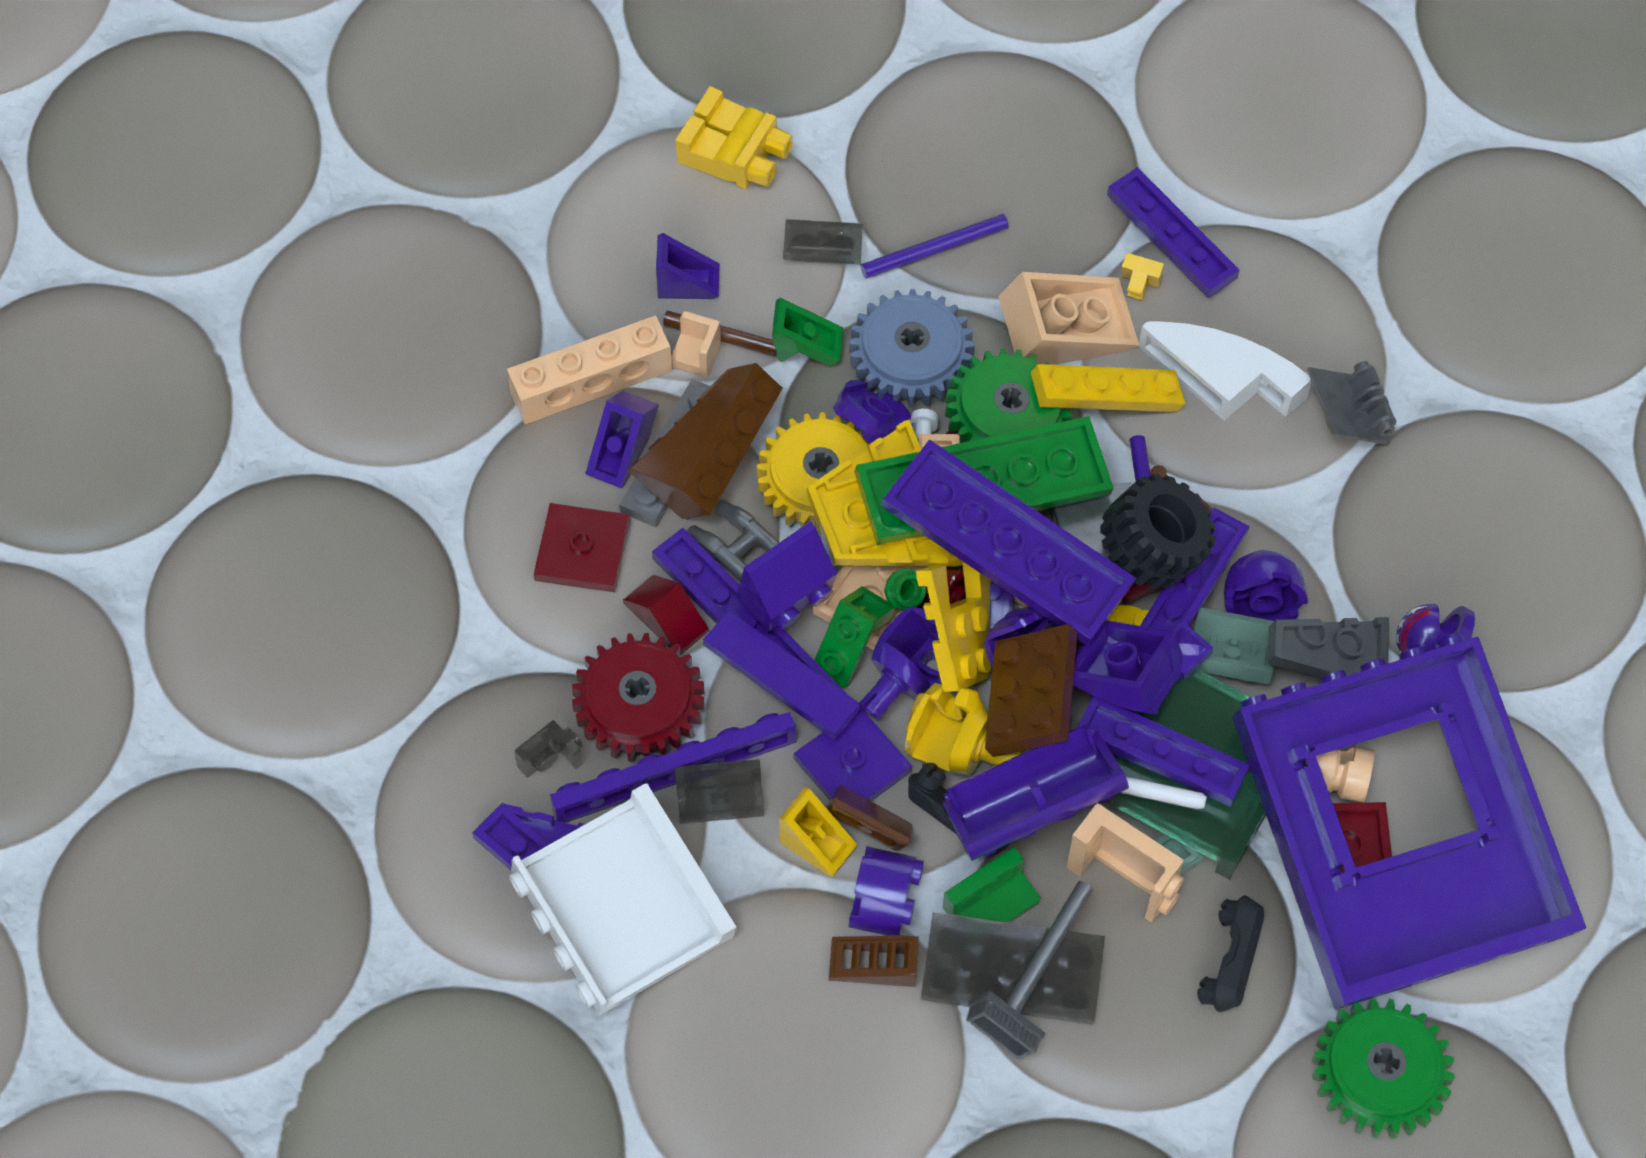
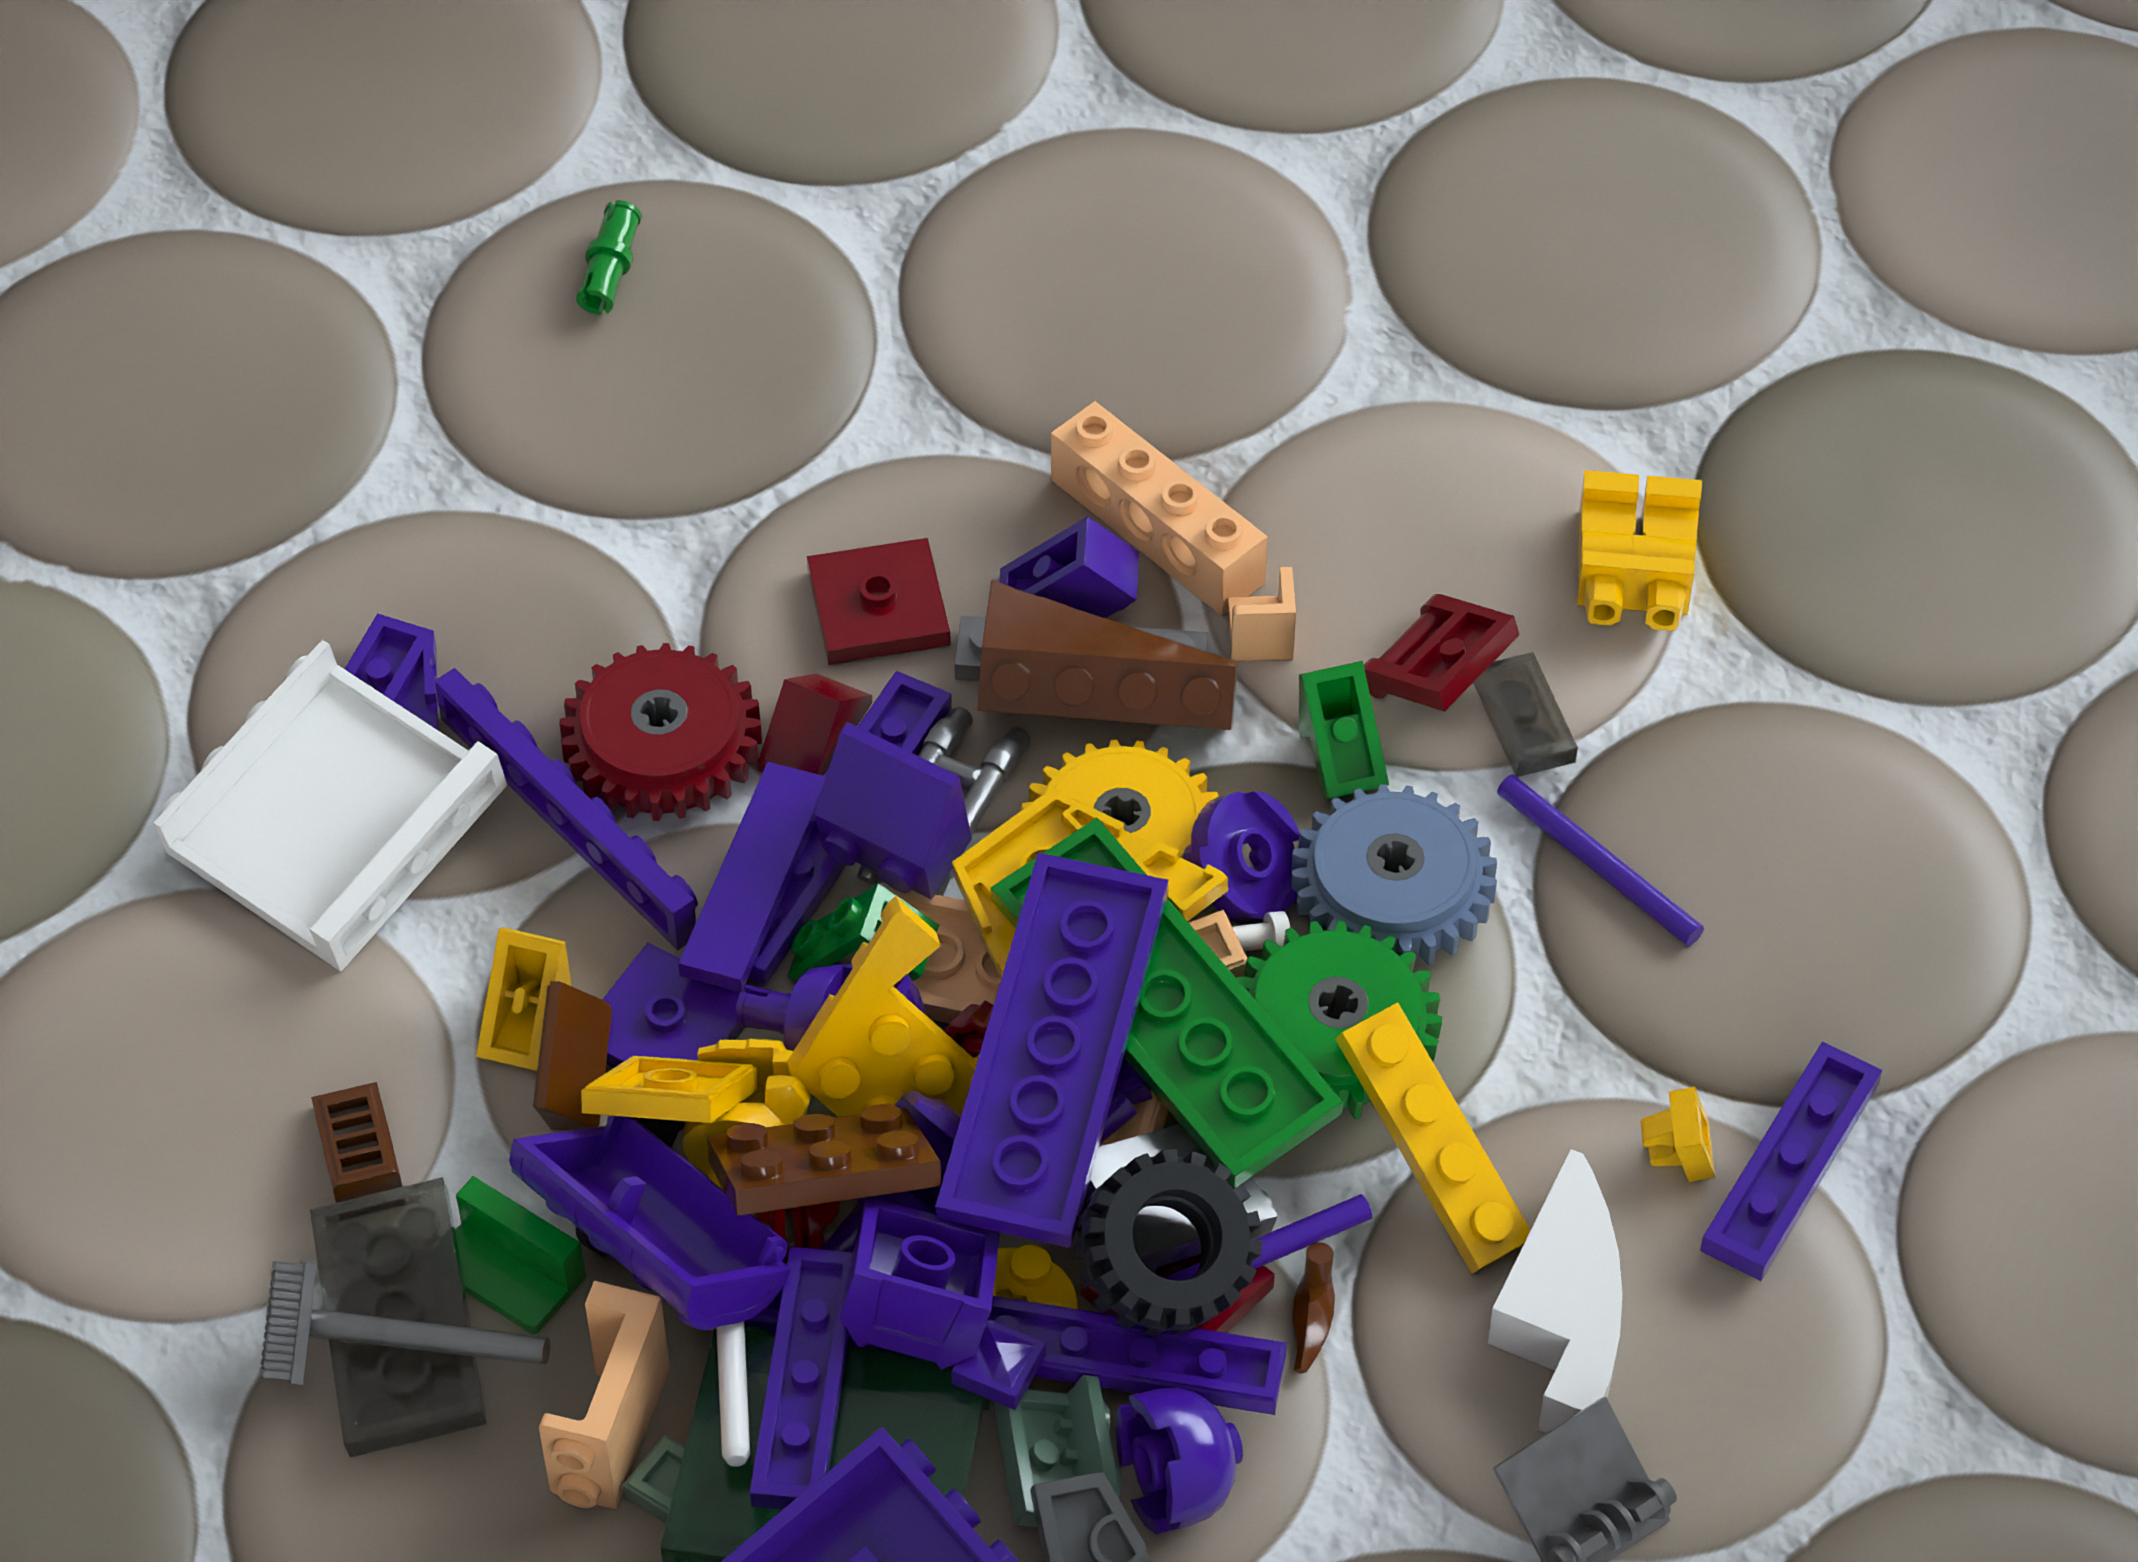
camera: 70 degrees right, 10 degrees down
(224, 611) = (608, 257): none -> green pin
(543, 749) = (537, 653): clear smoke bracket -> none
(684, 271) = (1379, 558): dark purple slope -> none
(719, 791) = (549, 872): clear smoke hinge -> none
(730, 336) = (1306, 625): reddish brown bar -> none
(773, 258) = (1441, 652): none -> dark red plate
(883, 891) = (469, 1113): dark purple cylinder -> none
(903, 589) = (952, 974): green plate -> none
(939, 760) = (670, 1089): none -> yellow tile
(1067, 317) = (1552, 1061): light nougat slope -> none

